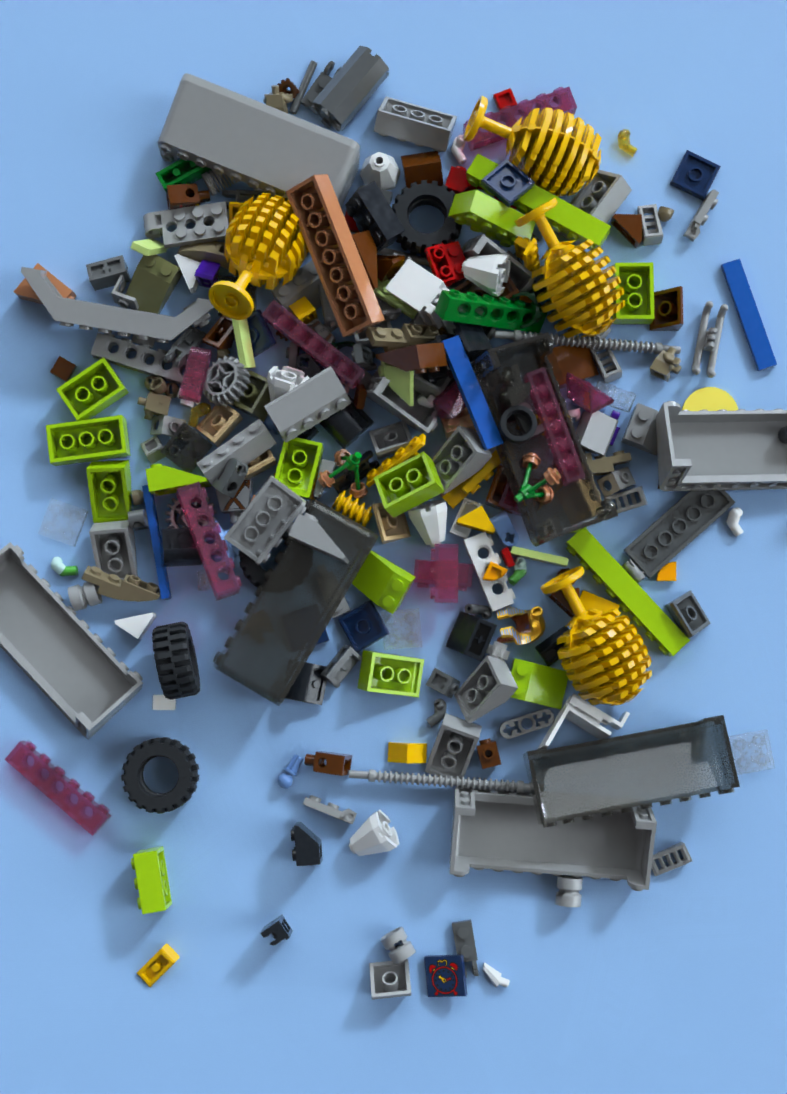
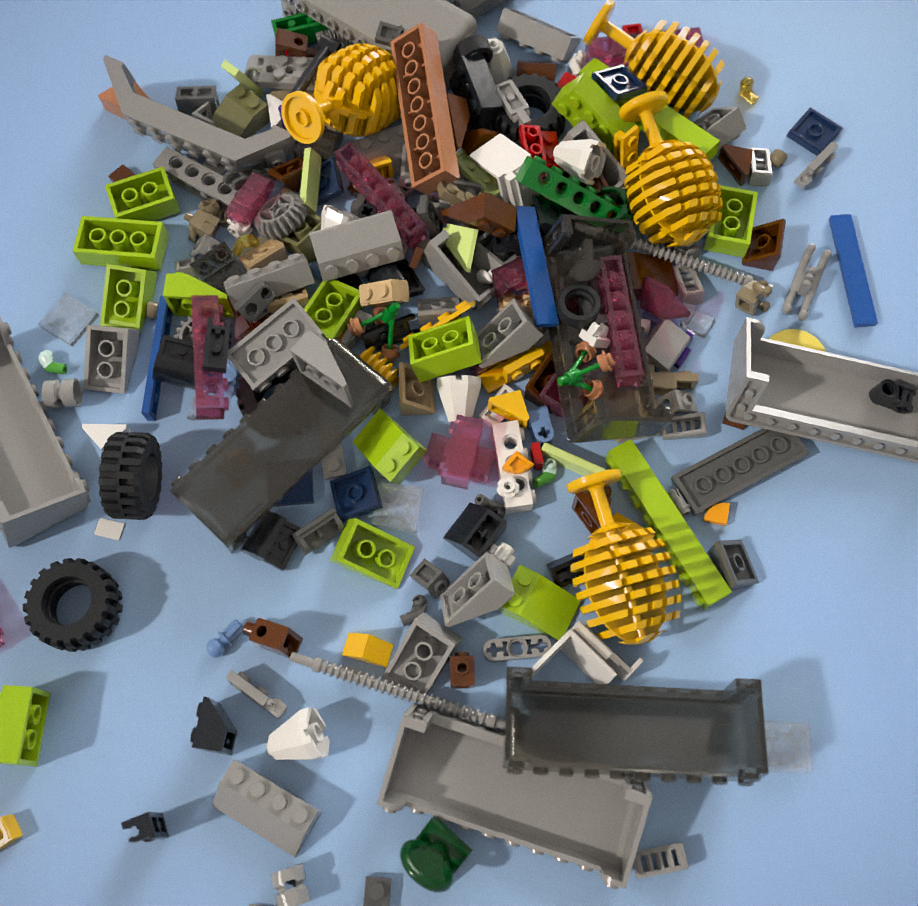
camera: 10 degrees right, 15 degrees down
(129, 589) = (104, 394): dark tan slope -> none
(138, 519) = (143, 327): dark grey leg -> none
(216, 535) = (216, 347): none -> black hinge
(219, 193) = (325, 47): none -> black piece
(281, 177) = (387, 32): none -> dark grey slope
(342, 442) = (384, 293): none -> tan brick
(362, 892) = (265, 807): none -> light grey slope
(363, 177) = (474, 44): none -> black tyre
(413, 223) = (514, 103): none -> light grey hinge
(491, 590) = (507, 493): none -> white plate
(501, 896) = (435, 854): none -> dark green tile
(529, 625) = (544, 533): pearl gold piece -> none
(537, 446) = (596, 335): none -> white tile
(568, 891) = (523, 870): light grey wheel -> none
(642, 429) = (715, 356): light grey slope -> none
(733, 520) = (803, 474): white arm -> none

